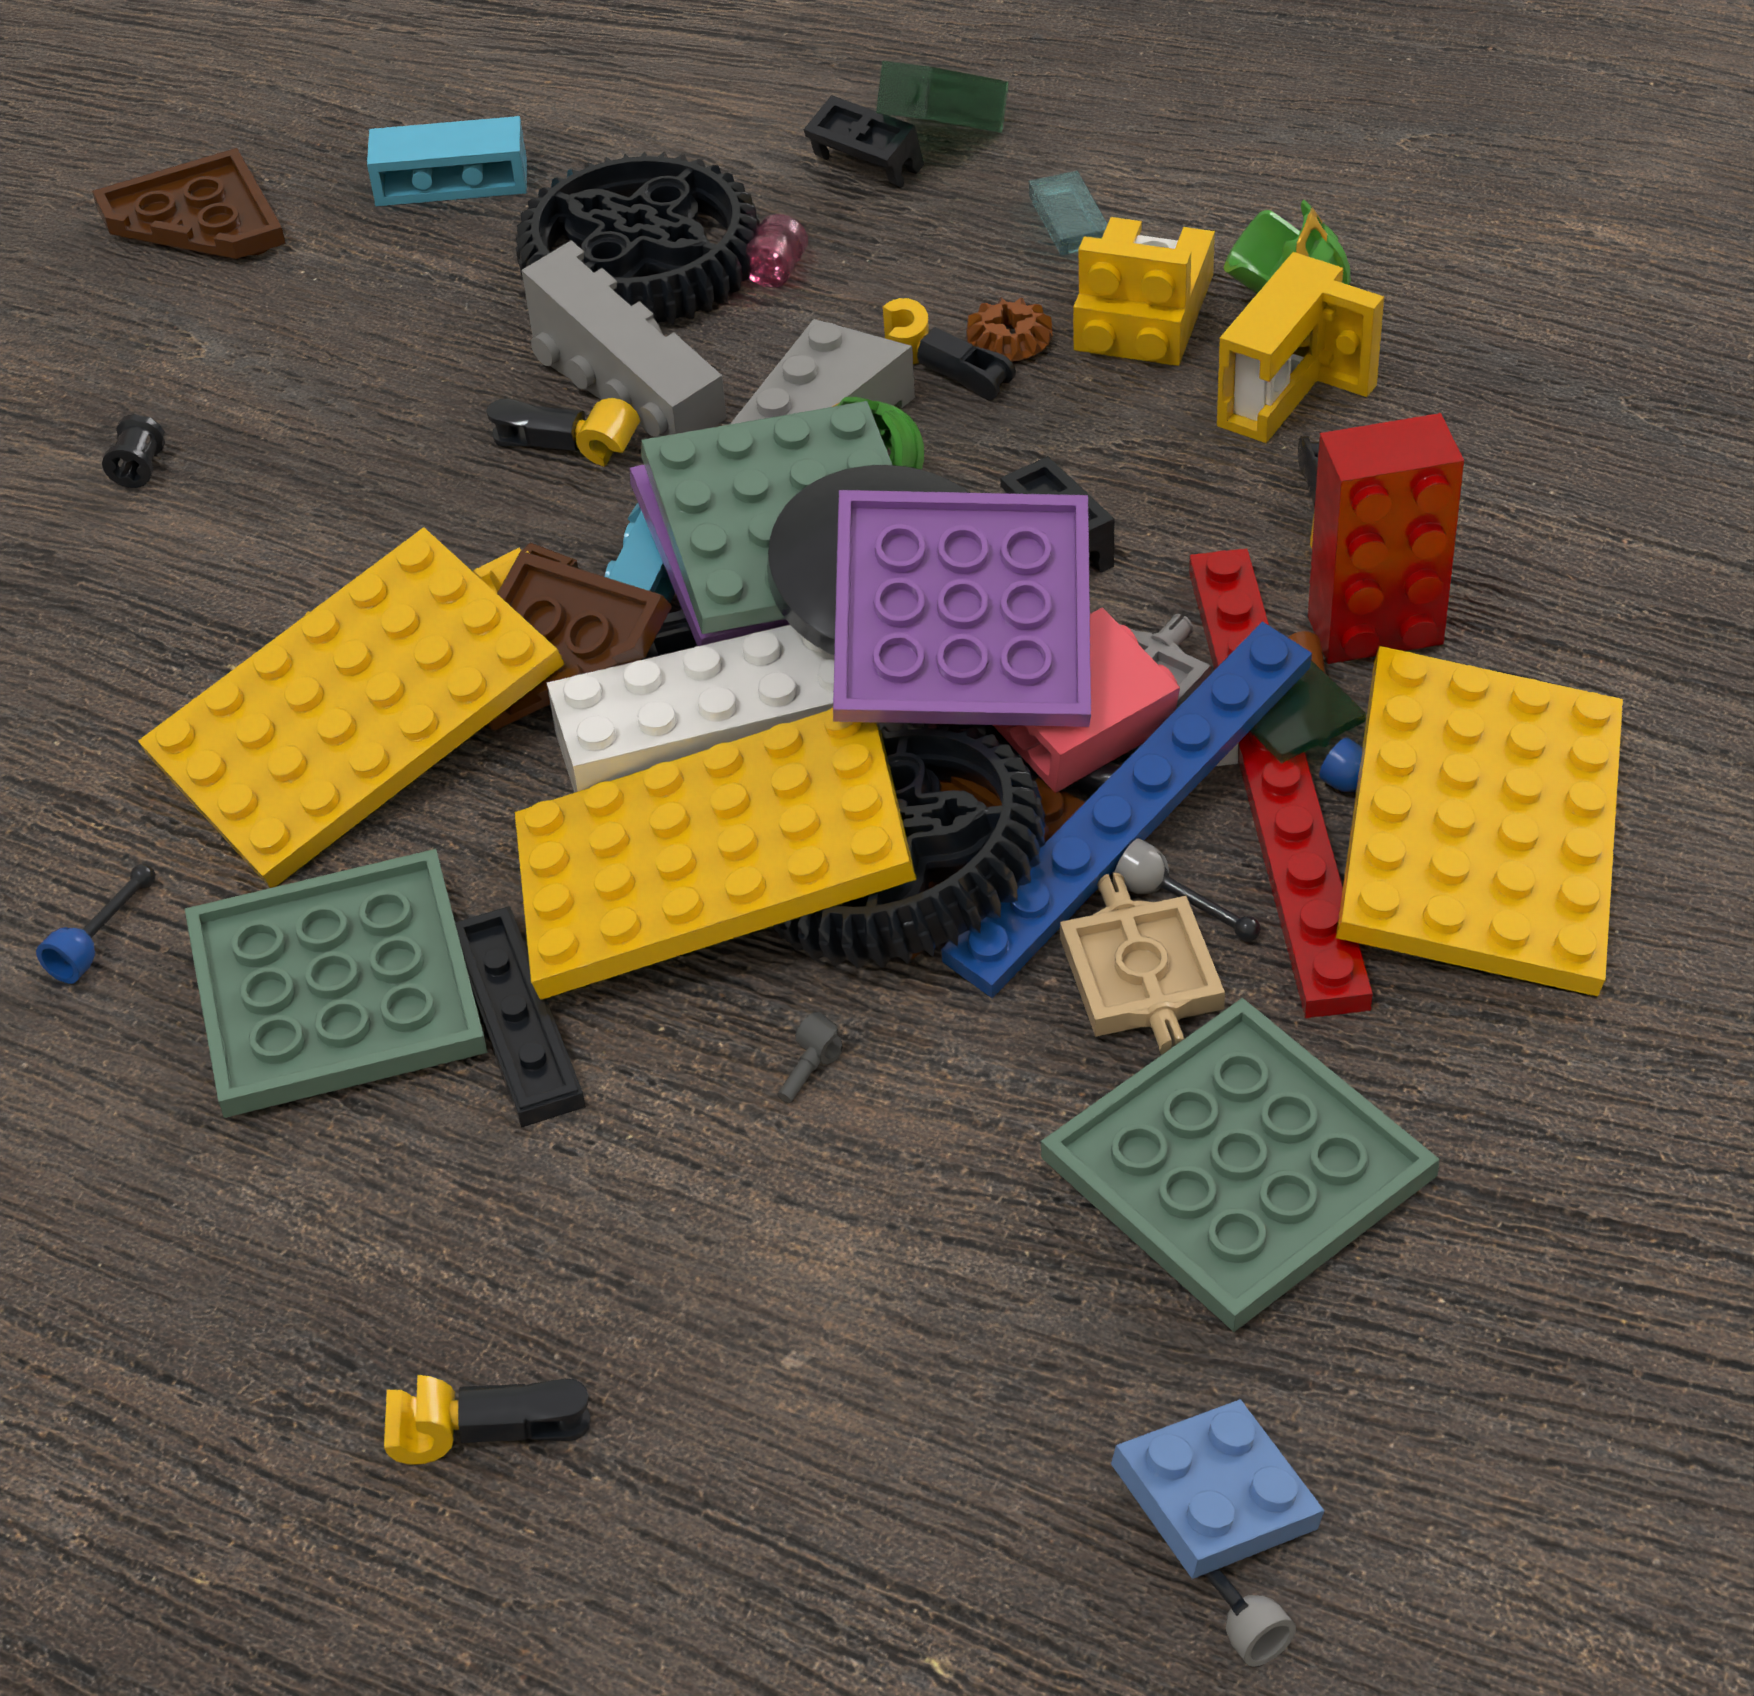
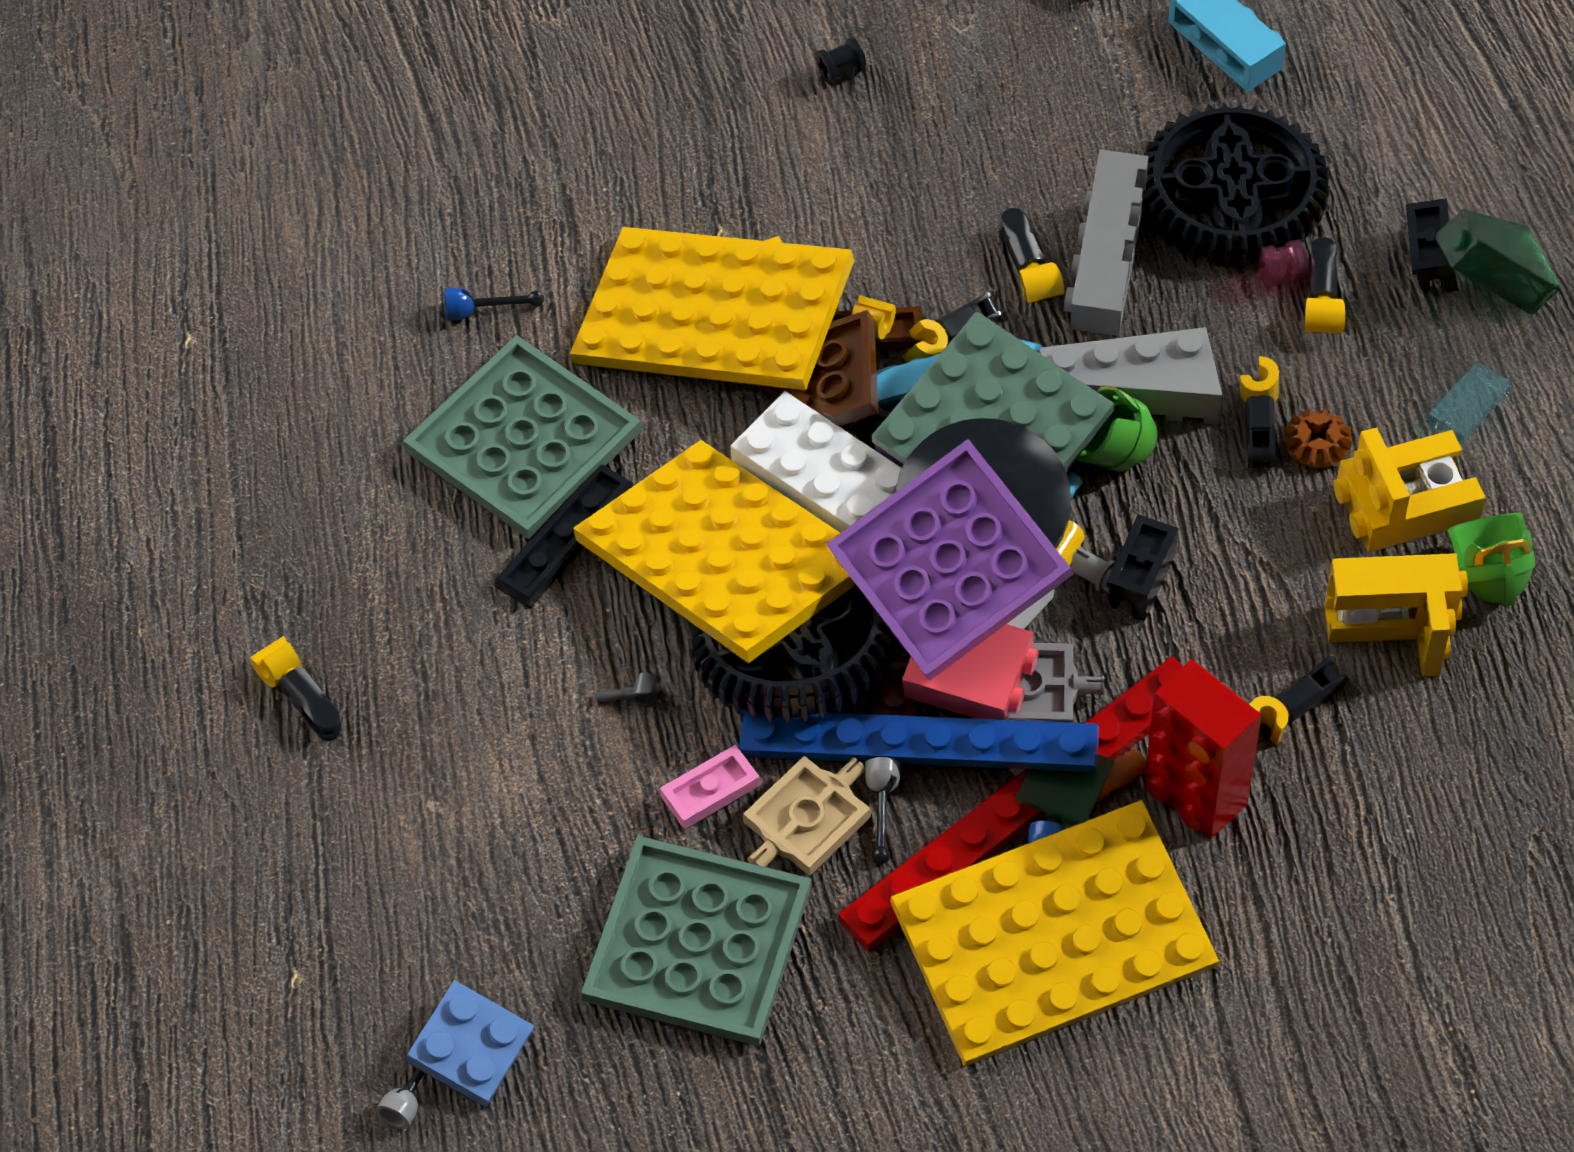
camera: 55 degrees right, 10 degrees up
(591, 534) = (939, 333): none -> piece
(859, 252) = (1323, 309): none -> piece
(1022, 1040) = (710, 786): none -> bright pink plate

